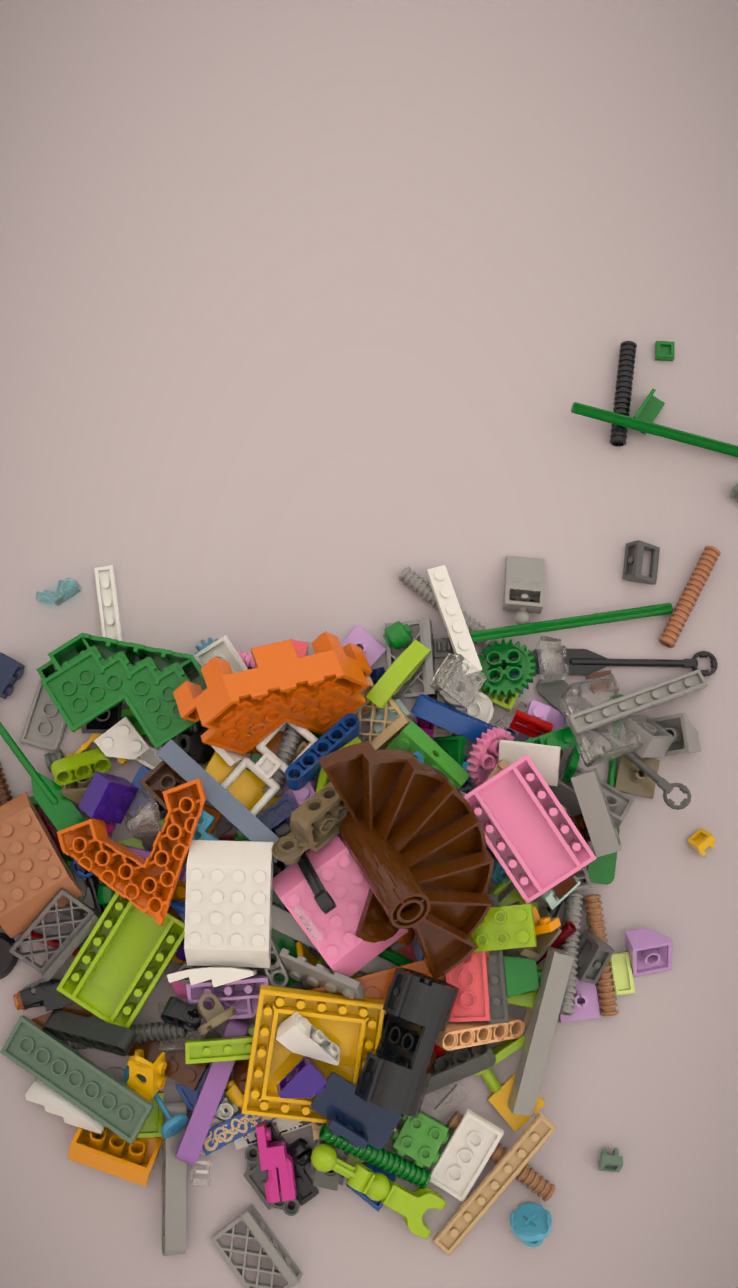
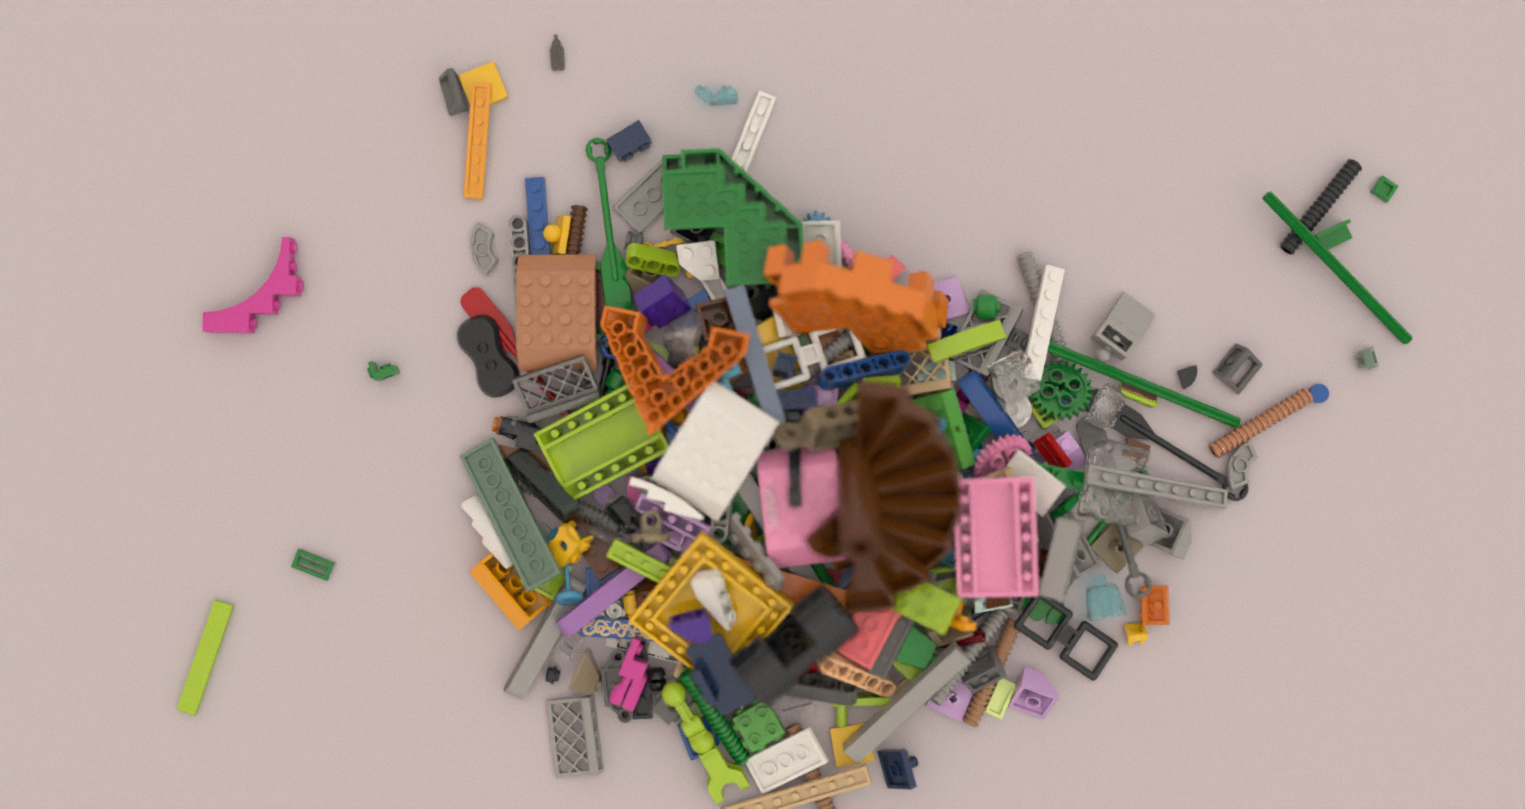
camera: 30 degrees right, 10 degrees up
(152, 1005) = (602, 493): none -> medium lavender tile
(201, 1209) = (552, 675): none -> black plate
(233, 1189) = (586, 675): none -> dark tan slope
(250, 789) = (784, 365): none -> panel
(571, 1097) = (898, 768): none -> dark blue tile
(574, 634) = (1138, 395): none -> slope
(604, 593) = (1187, 376): none -> black tile
(623, 867) = (1053, 616): none -> green tile
(643, 880) = (1067, 636): none -> black bar
(656, 828) = (1103, 600): none -> clear light blue torso
(694, 642) = (1238, 465): none -> light grey tile
(703, 807) = (1155, 606): none -> orange bracket
(721, 542) = (1319, 393): none -> blue tile

